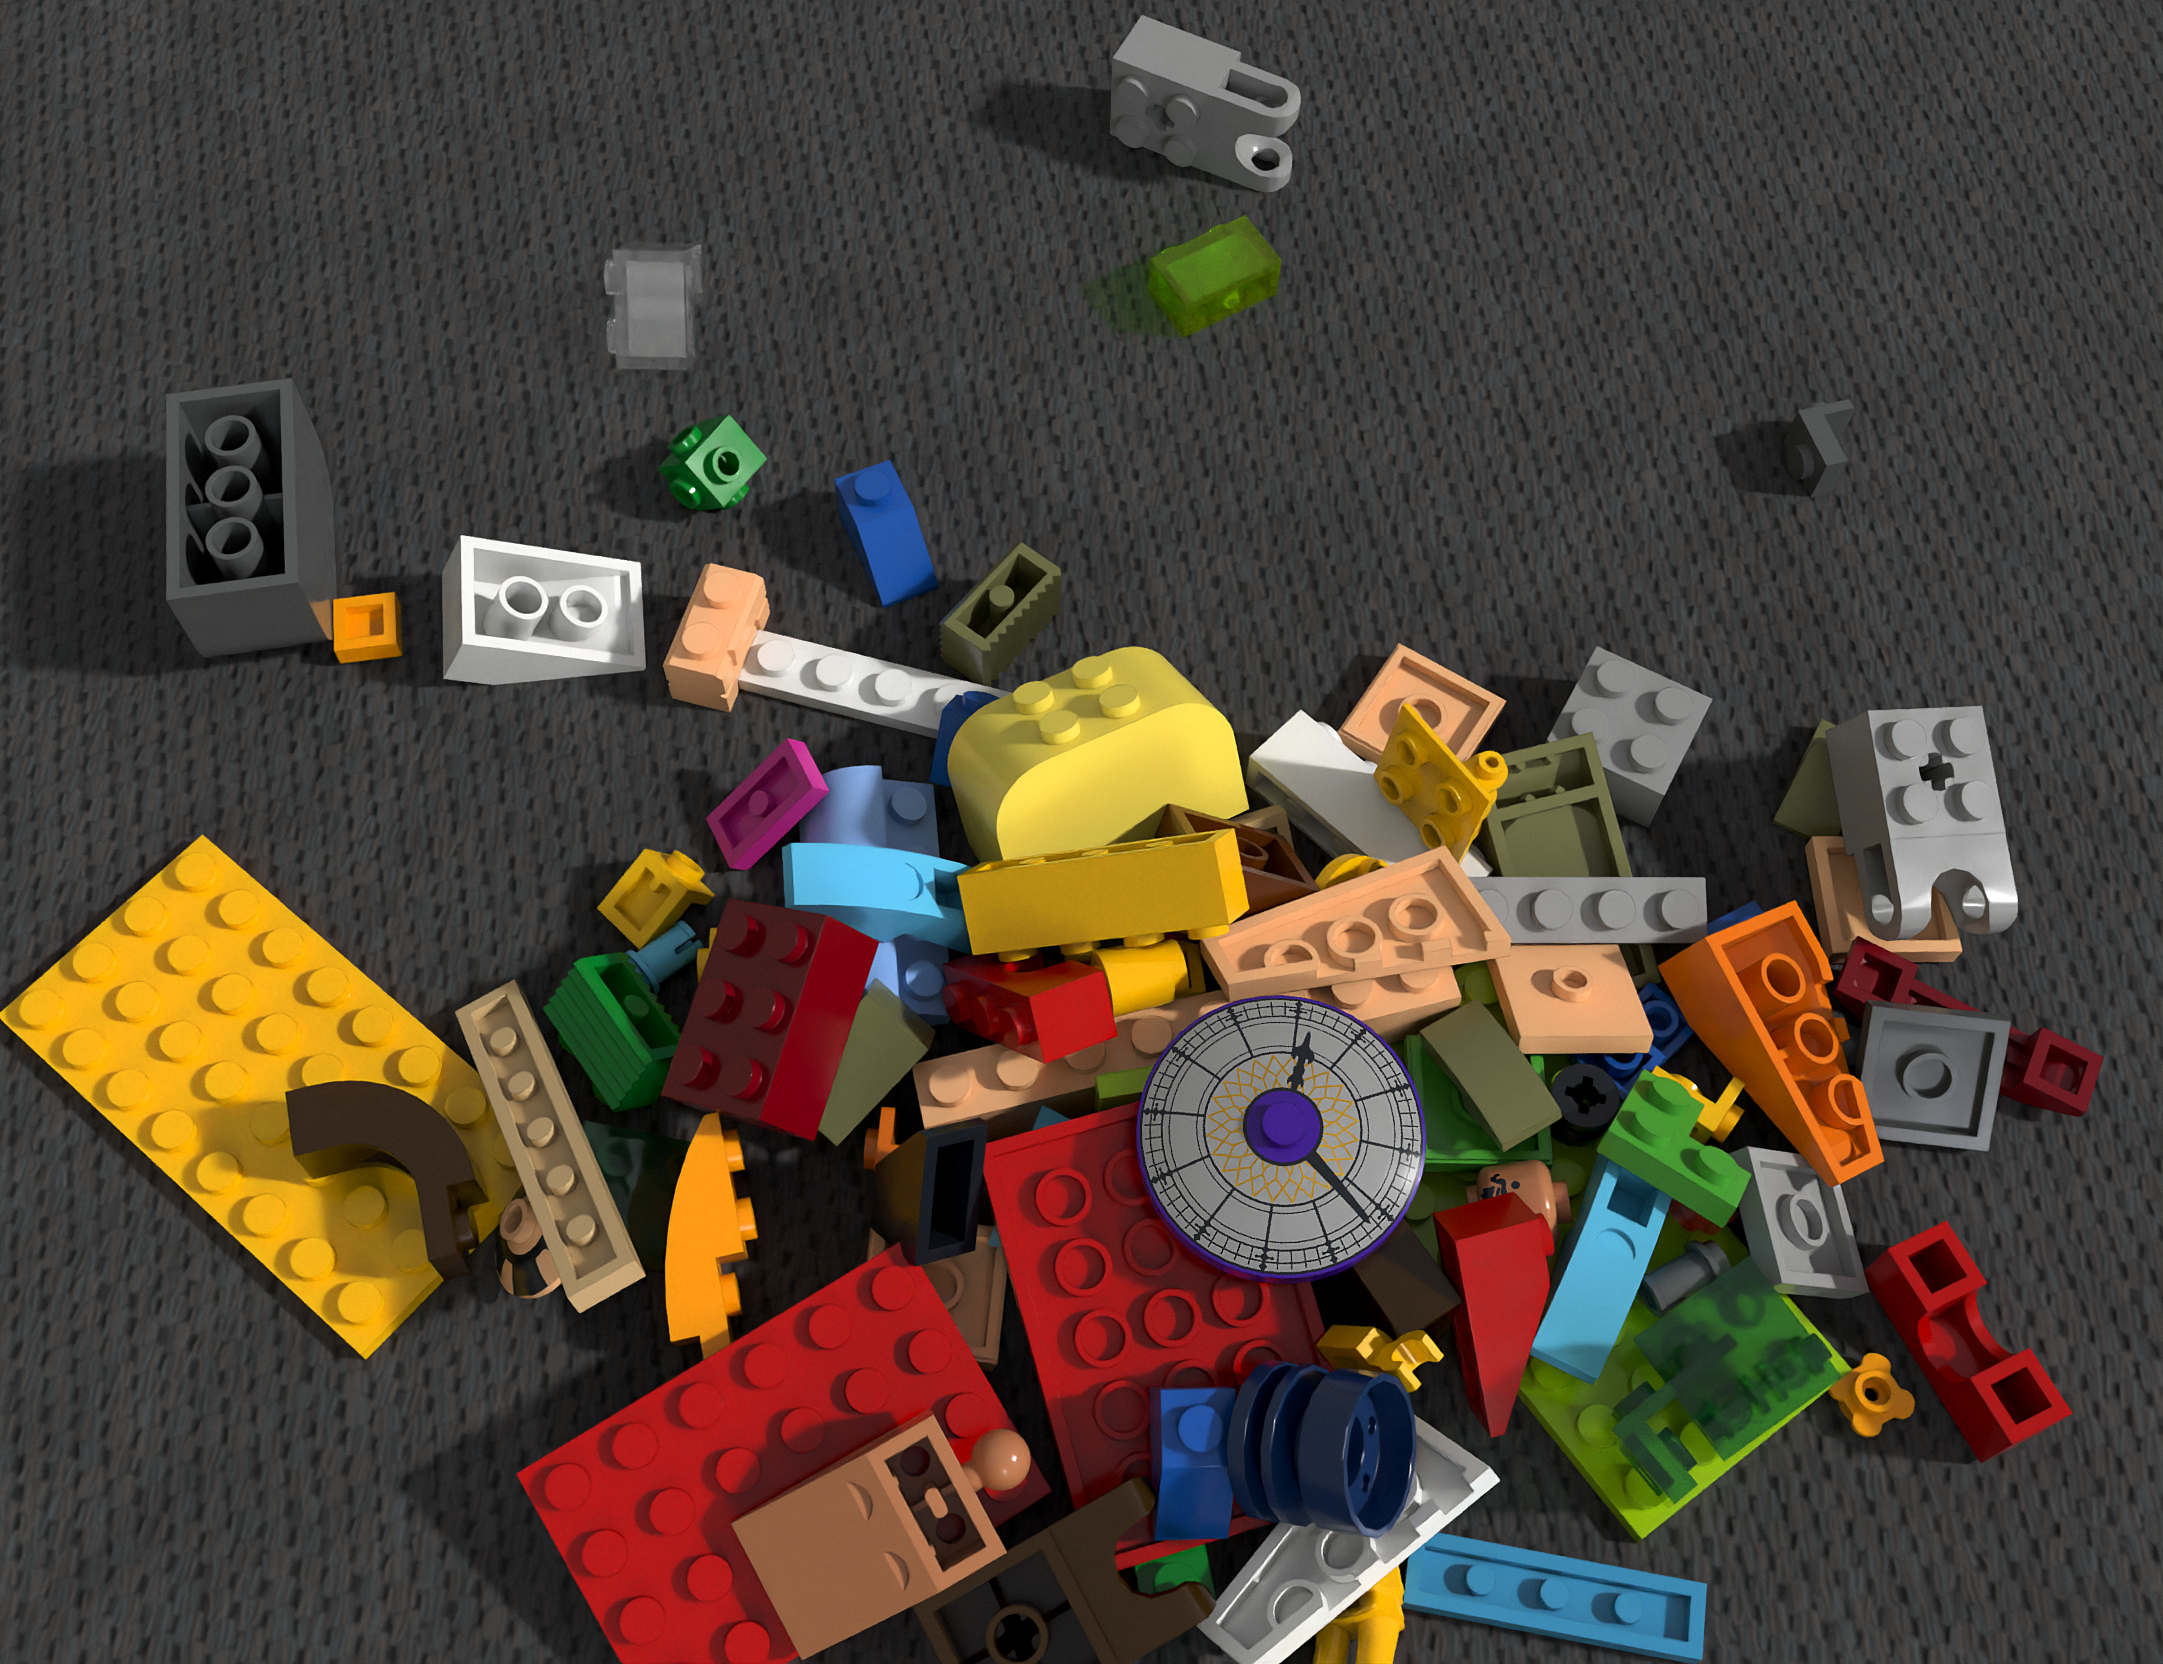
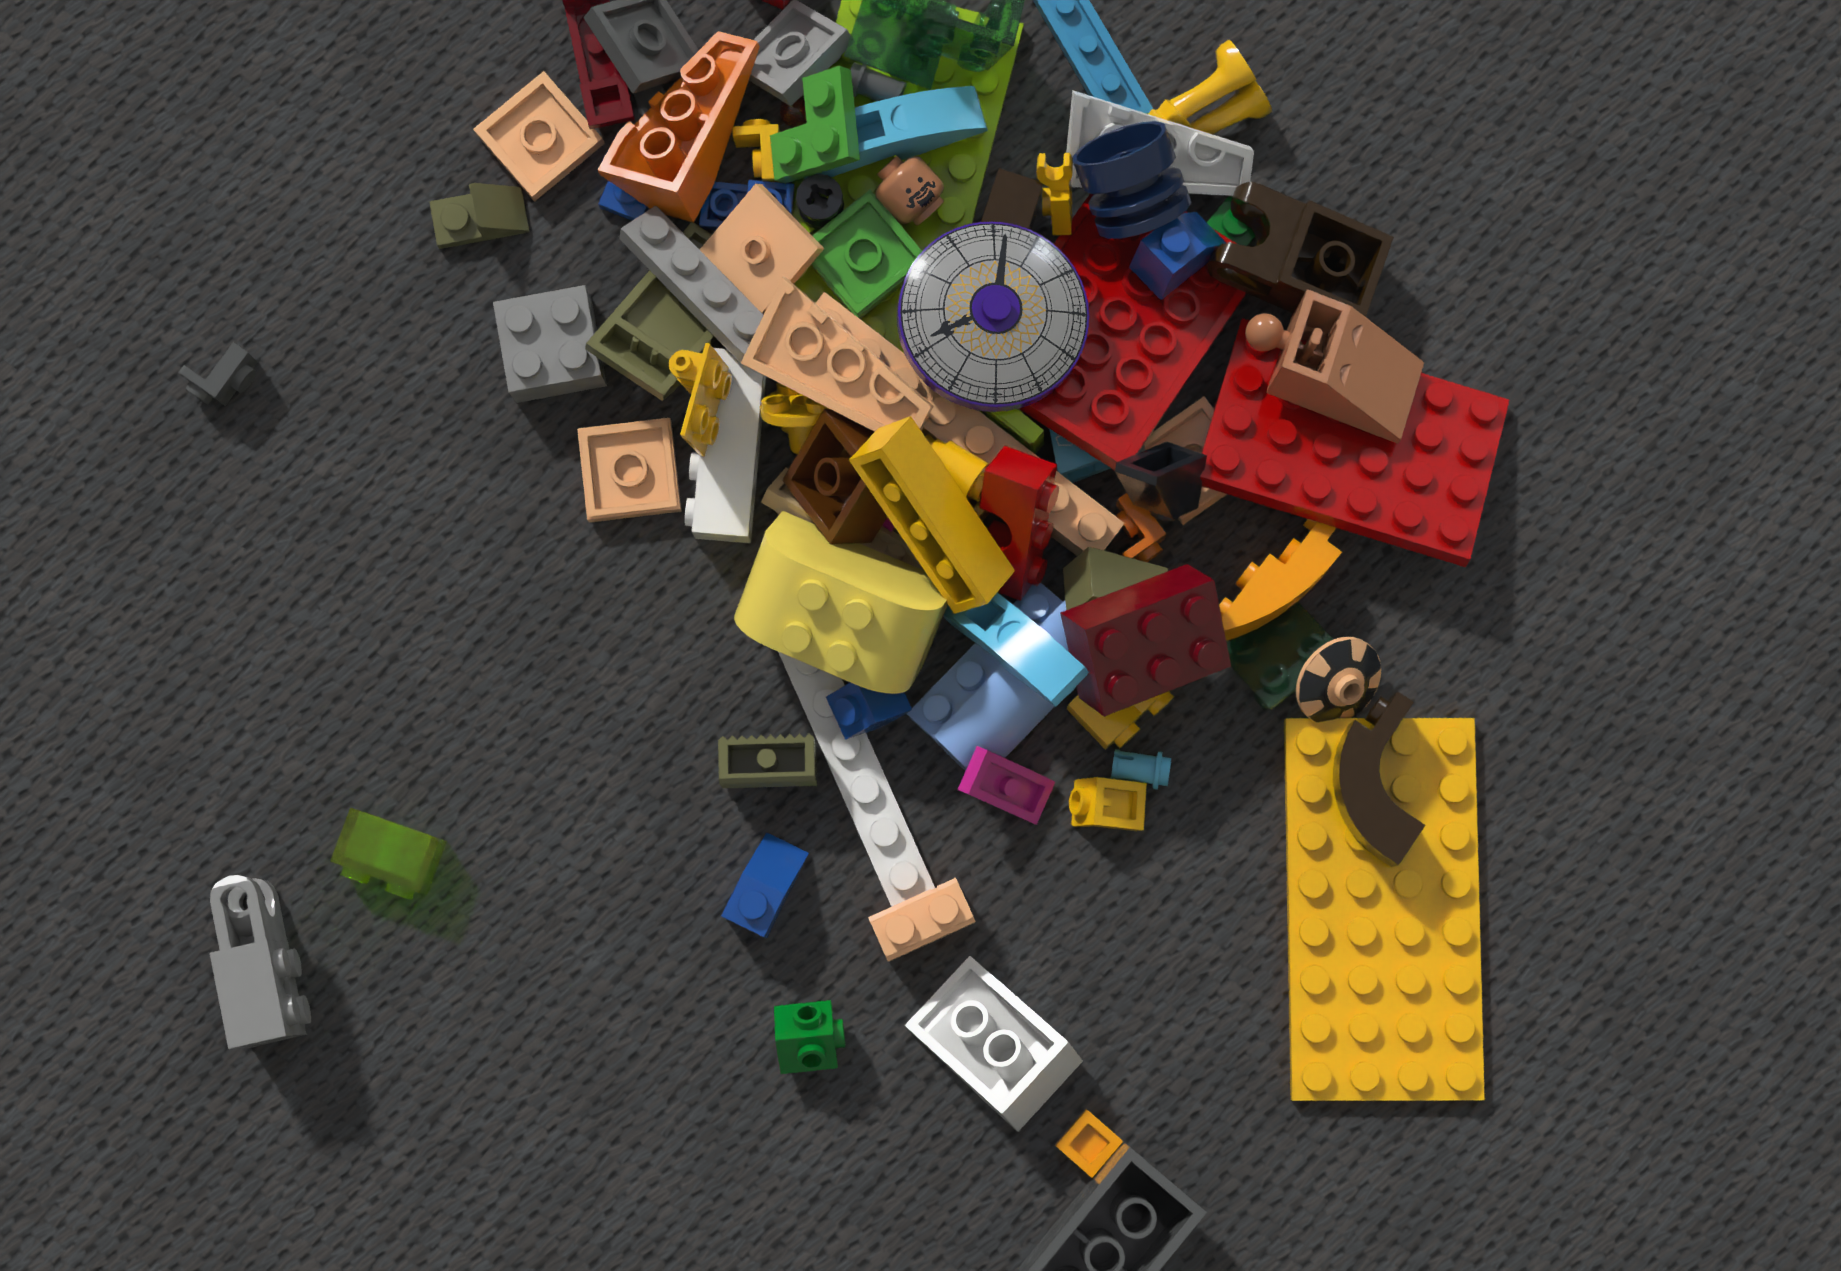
camera: 125 degrees left, 20 degrees up
(549, 1148) = (1301, 709): tan plate -> none
(615, 1030) = (1205, 741): green brick -> none
(653, 304) = (716, 1189): clear brick -> none
(1491, 1073) = (853, 249): olive slope -> none
(1500, 1270) = (969, 160): red slope -> none
(1923, 814) = (487, 133): light grey brick -> none

